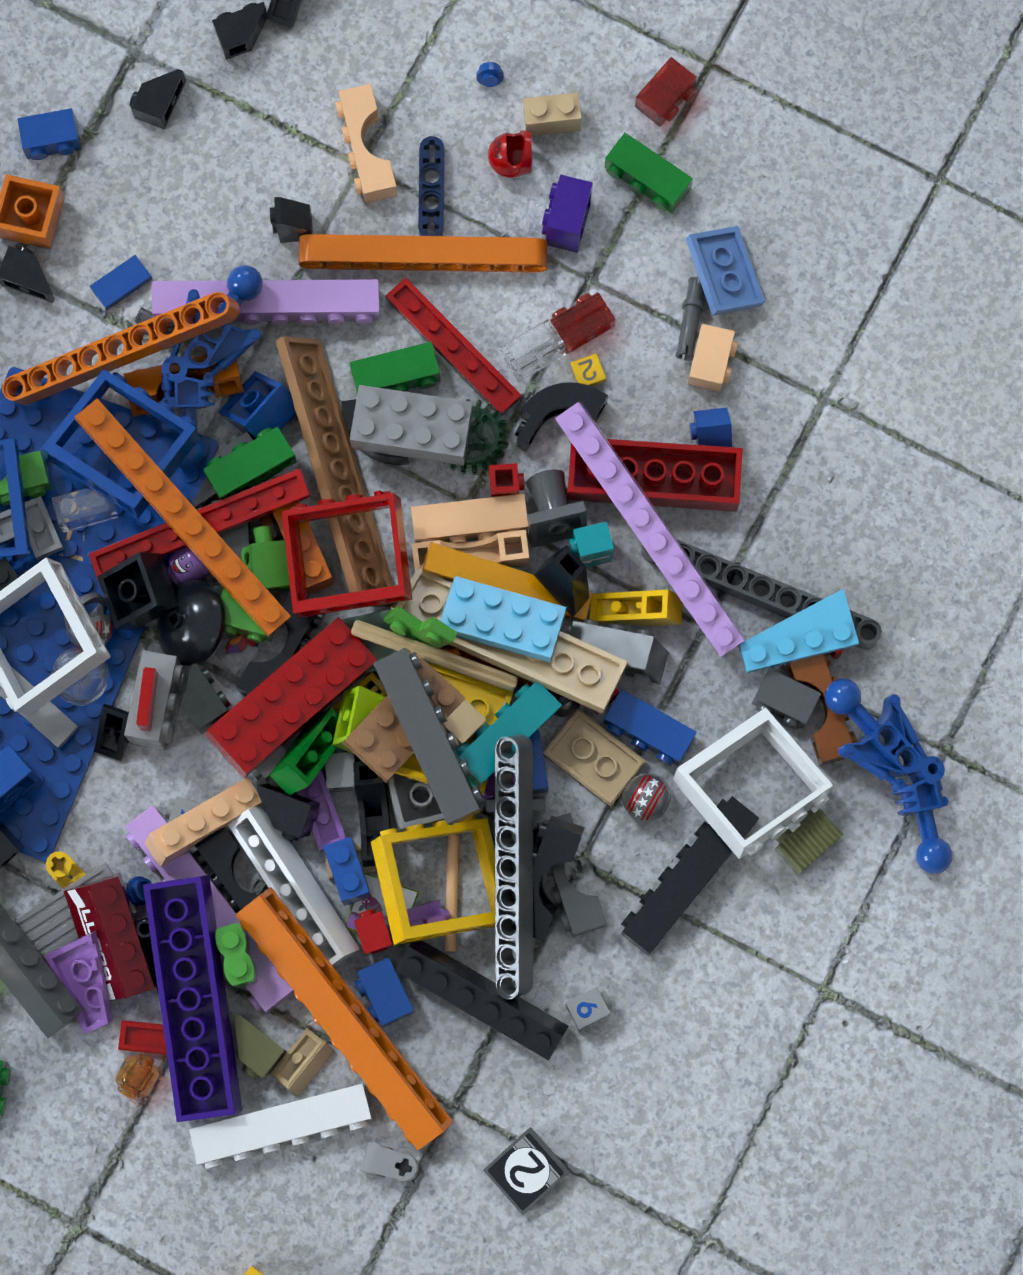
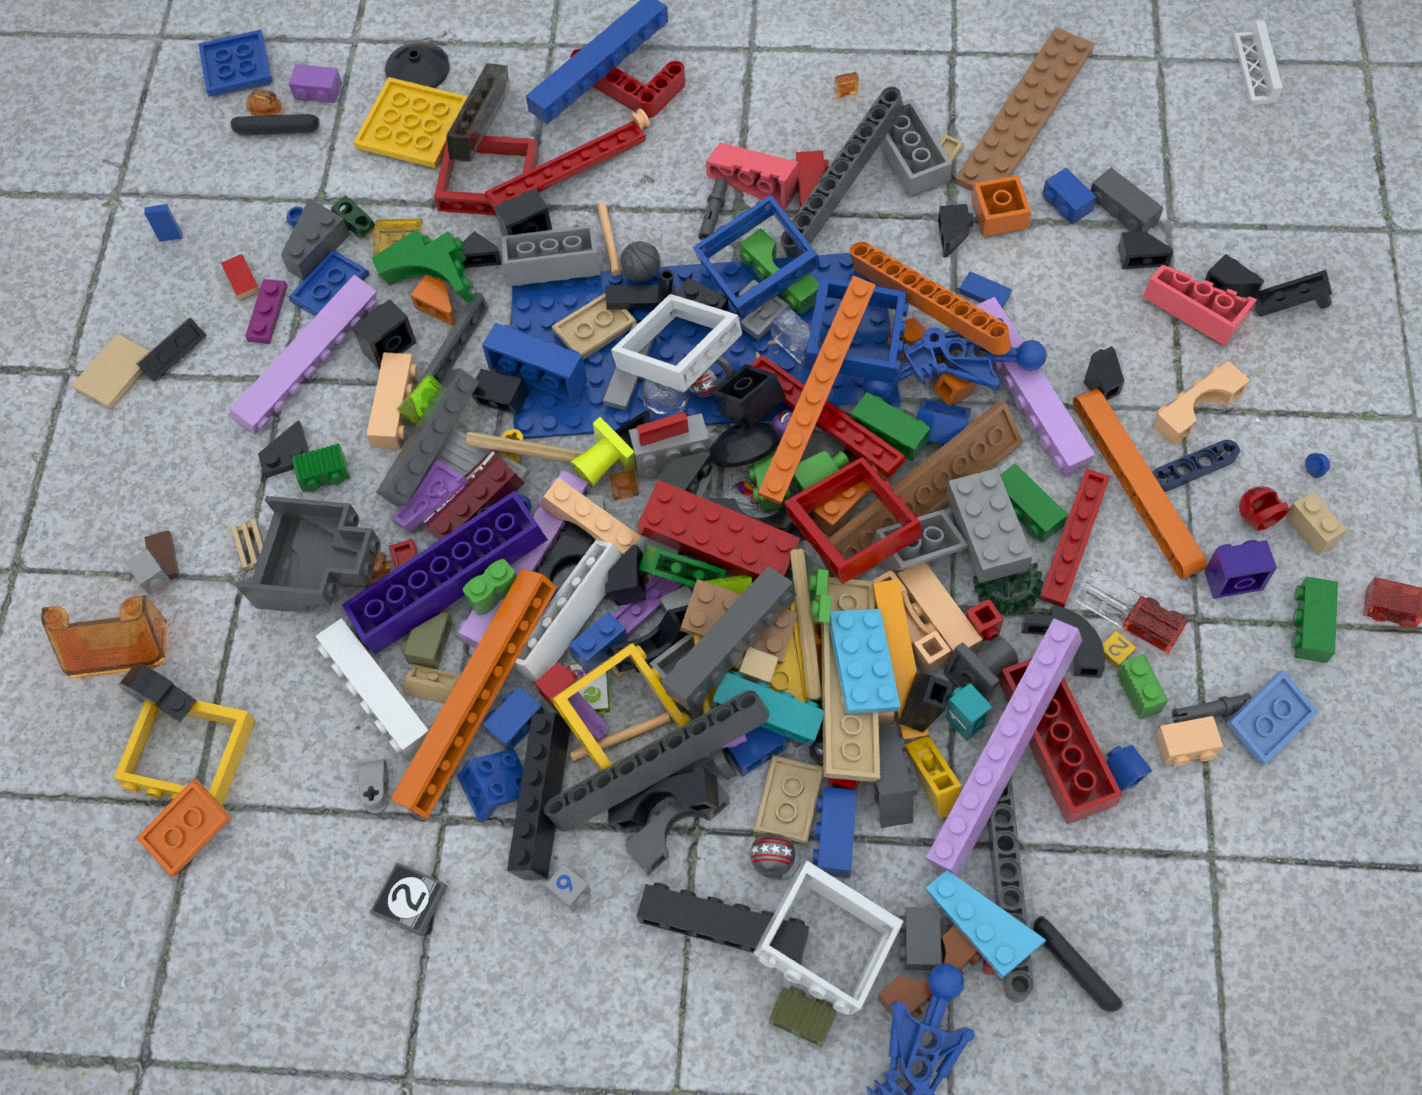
camera: 70 degrees right, 15 degrees down
(14, 1200) = (245, 527): none -> tan tile
(88, 81) = (1126, 201): none -> dark grey brick
(88, 842) = (521, 447): none -> tan axle
(101, 1135) = (308, 554): none -> dark grey panel
(131, 776) = (603, 454): none -> neon yellow plant
(166, 769) = (623, 485): none -> clear orange plate
(255, 79) = (1198, 303): none -> coral wedge
(406, 479) = (938, 540): none -> light grey slope
(444, 1040) = (491, 781): none -> blue bracket
(639, 370) = (1142, 686): none -> bright green brick
(870, 573) = (1077, 966): none -> black piece

